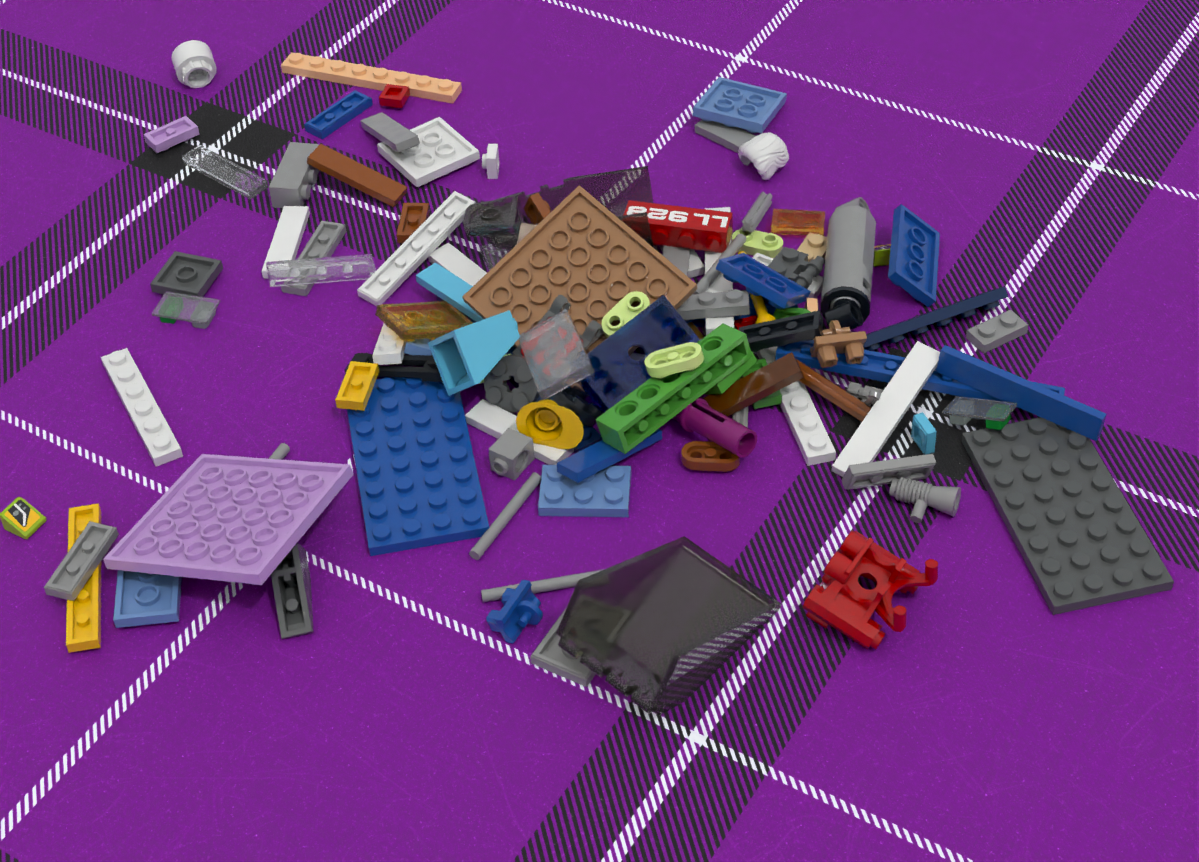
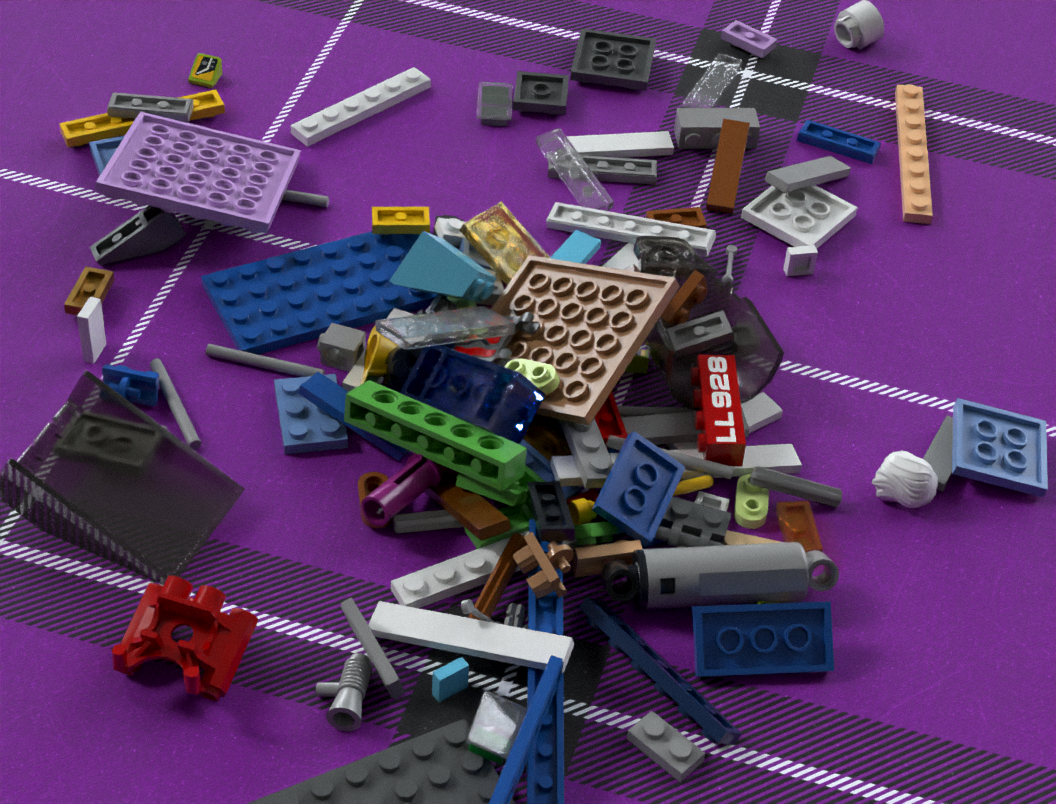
camera: 70 degrees right, 0 degrees up
(158, 221) = (613, 59): none -> dark grey plate
(362, 637) = (91, 283): none -> pearl gold plate
(394, 96) = (884, 171): red plate -> none
(442, 625) = (91, 330): none -> white tile
(674, 360) = (448, 412): yellowish green plate -> none

